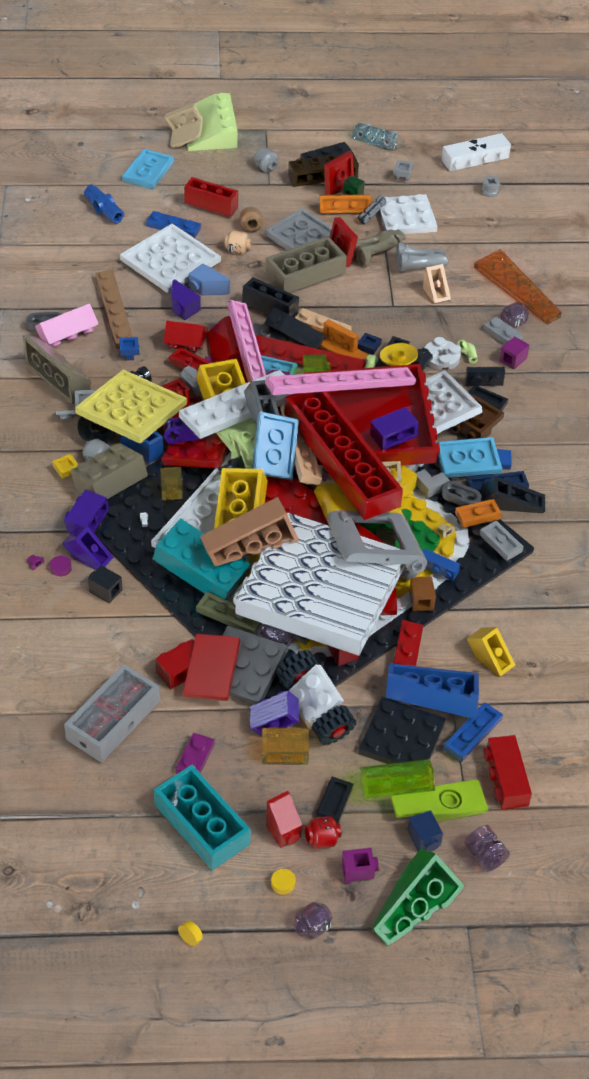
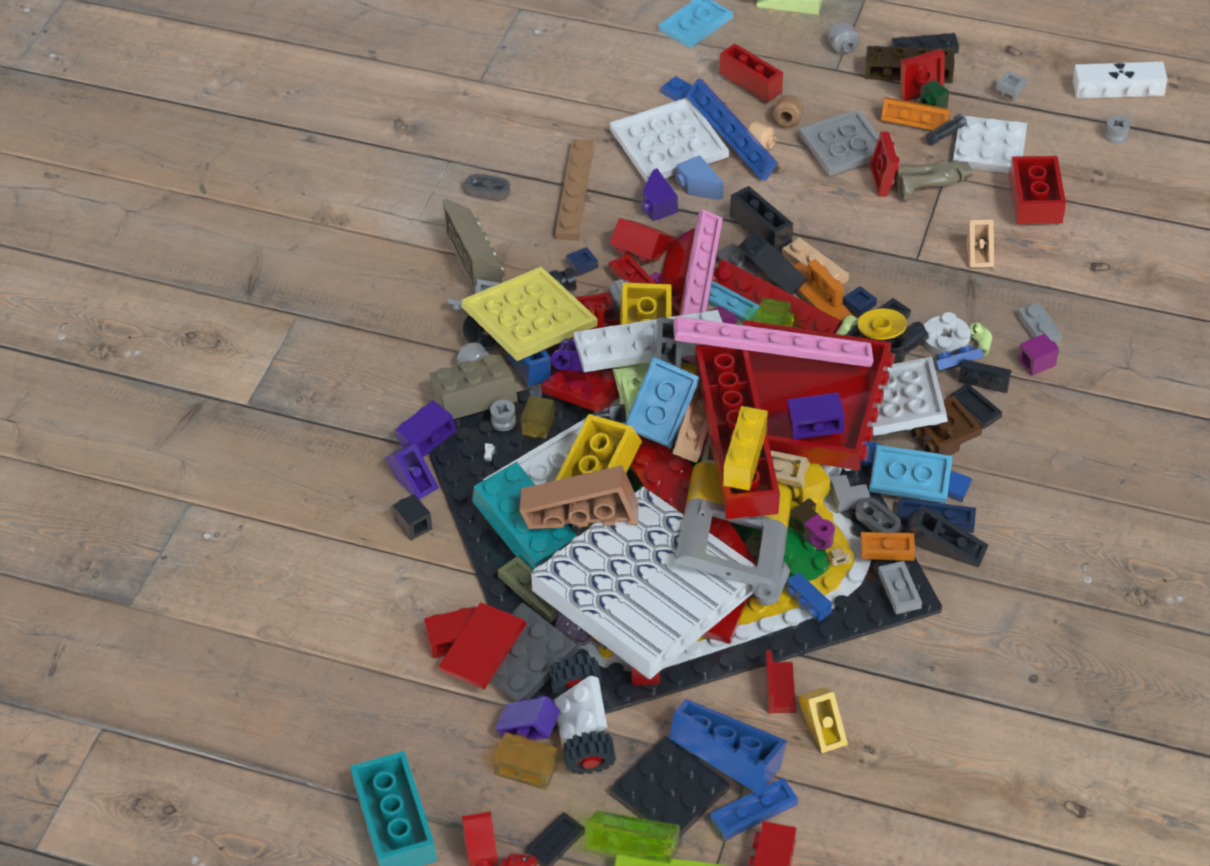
camera: 25 degrees right, 0 degrees up
(35, 561) = (350, 470): magenta piece -> none
(60, 565) = (375, 482): magenta tile -> none
(64, 465) = (431, 364): yellow plate -> none
(67, 325) = (507, 198): bright pink brick -> none
(104, 203) = (621, 55): blue piece -> none
(112, 713) = (350, 667): brick -> none
(129, 347) = (567, 240): blue tile -> none
(142, 488) = (503, 415): none -> light grey wheel
(146, 359) = (582, 261): none -> dark blue plate
(196, 752) = (424, 742): magenta plate -> none
(216, 240) = (732, 129): none -> blue tile
(306, 265) = (826, 184): dark tan brick -> none
(365, 461) = (745, 448): none -> yellow brick
(375, 136) = (998, 33): clear light blue piece -> none
(408, 643) = (726, 683): red plate -> none
(413, 258) = (972, 204): light grey piece -> none
(418, 512) = (811, 525): none -> leg
(422, 593) = (769, 626): dark orange brick -> none
(446, 635) = (780, 686): none -> red panel
(458, 238) = (1037, 190): none -> red brick
(459, 368) = (945, 360): none -> plate
(513, 281) = (1085, 259): clear orange wing -> none
(515, 314) = (1063, 305): clear purple head -> none

